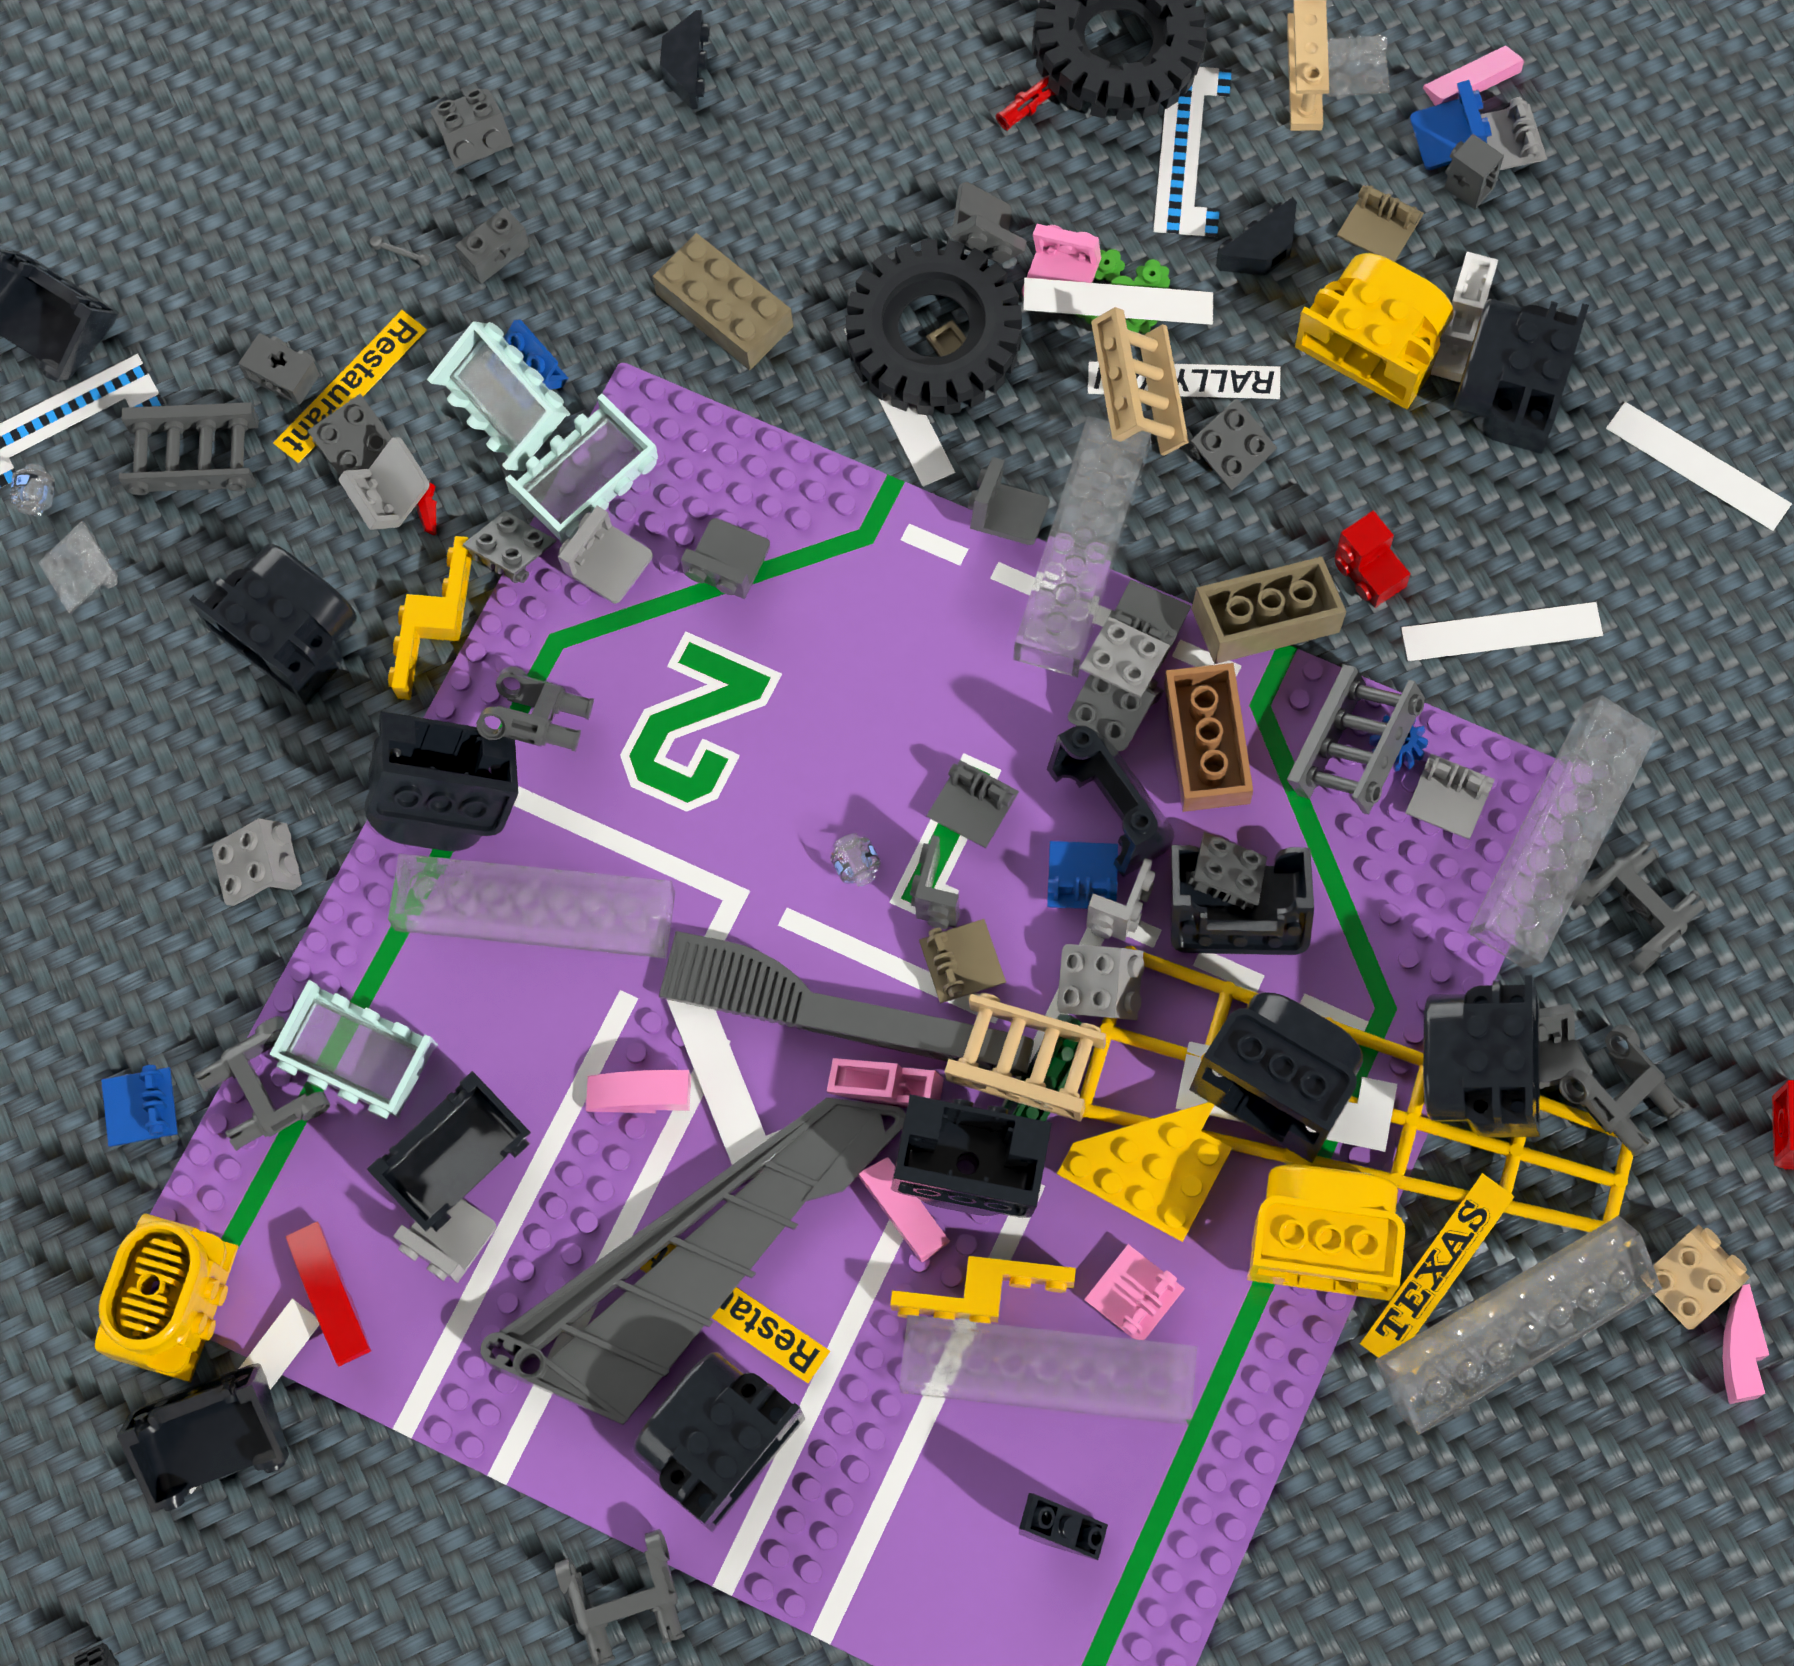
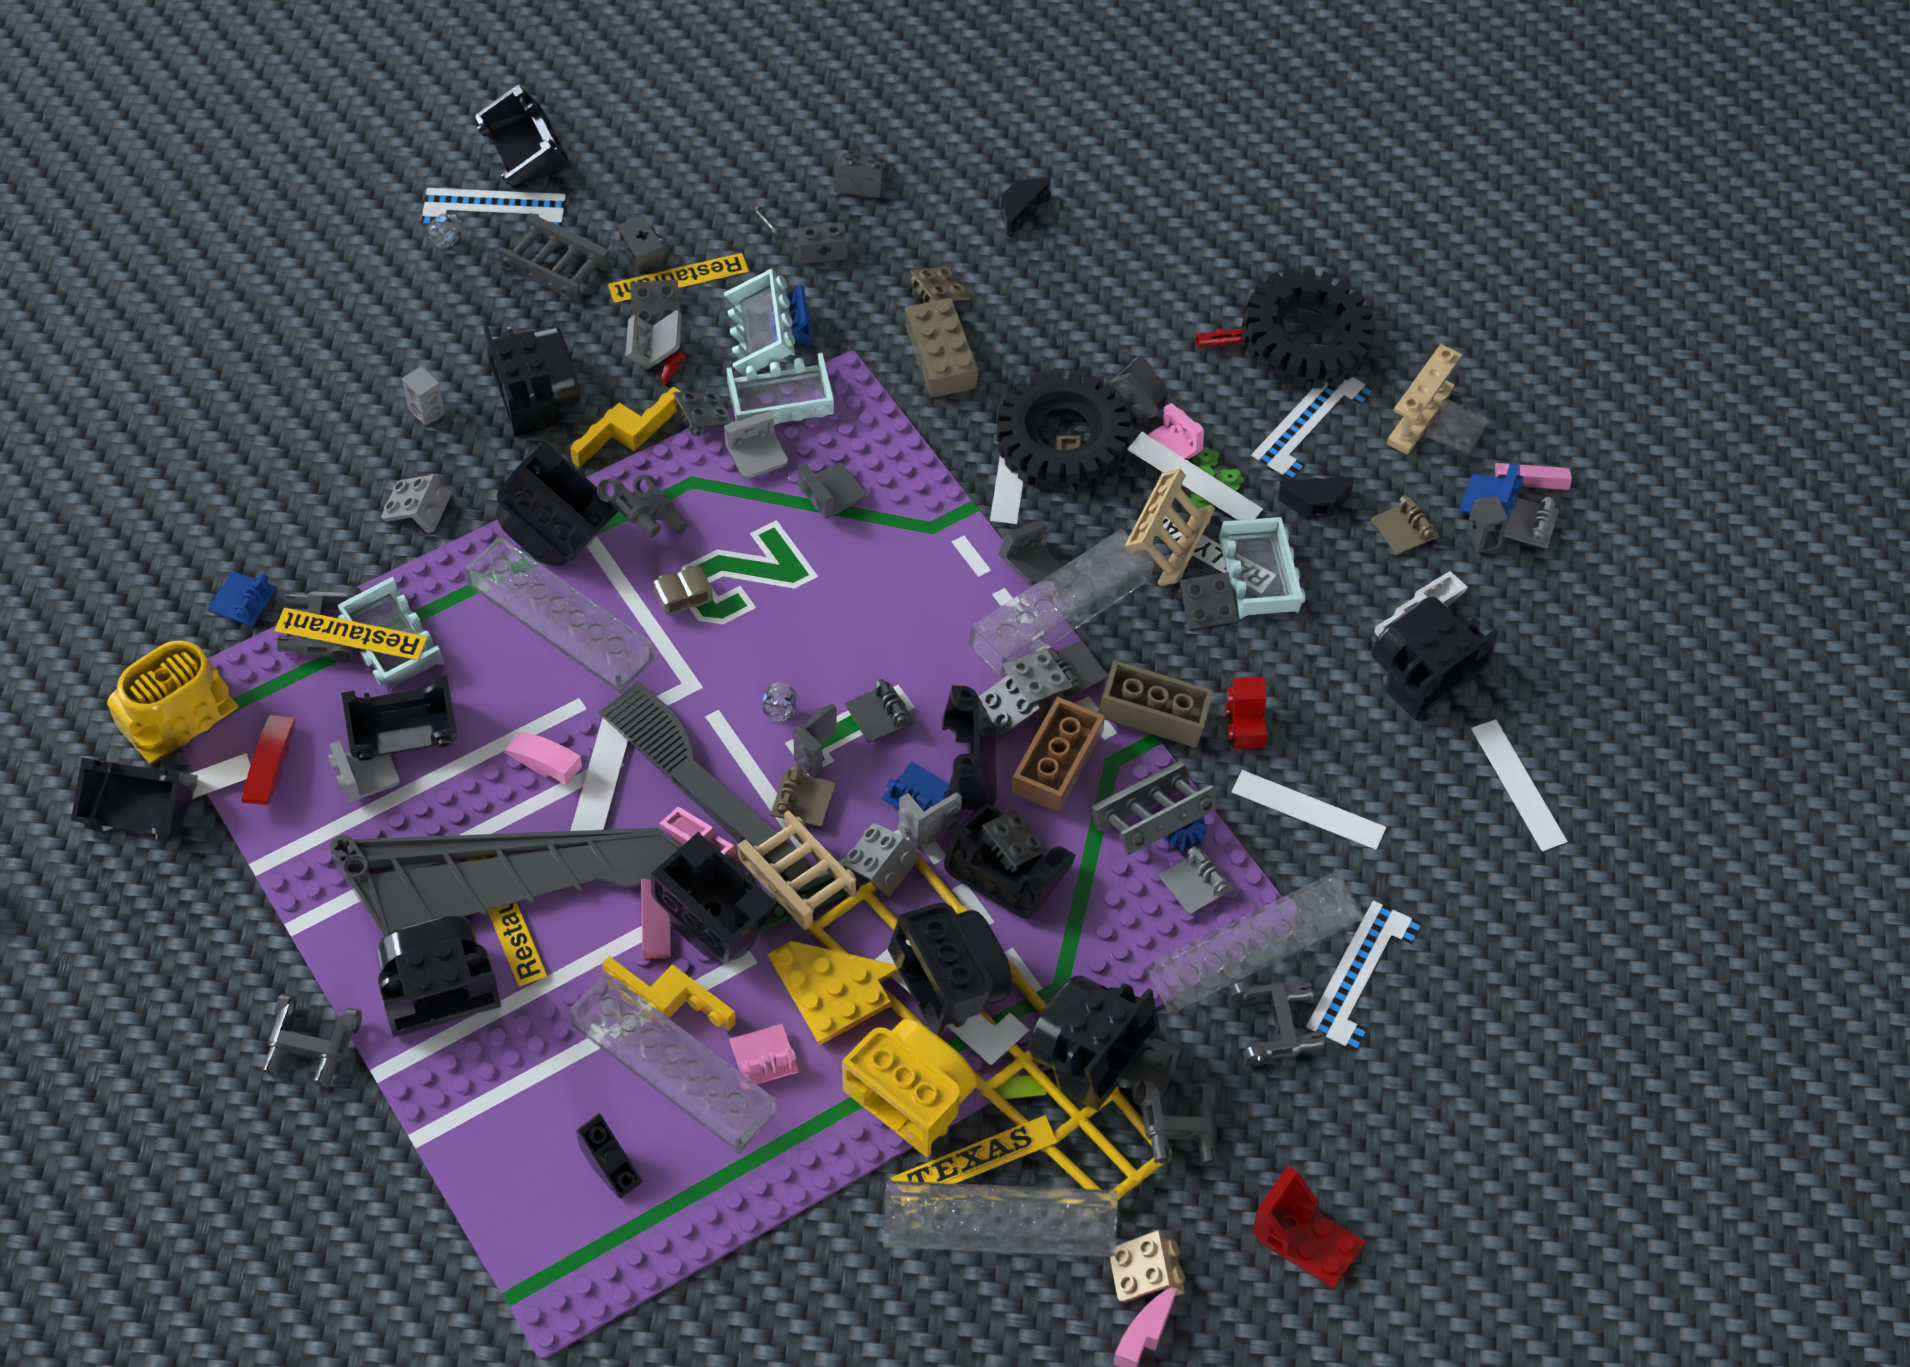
camera: 25 degrees right, 15 degrees down
(77, 567) = (439, 287): clear hinge -> none
(170, 723) = (423, 395): none -> light grey brick
(311, 1081) = (351, 633): none -> yellow sticker
(648, 787) = (683, 590): none -> dark tan brick
(663, 222) = (937, 284): none -> dark tan hinge
(1263, 368) = (1261, 566): none -> window
(1377, 327) = (1352, 580): yellow brick -> none
(1427, 1153) = (1020, 1087): none -> lime sticker
(1675, 797) = (1354, 971): none -> white sticker

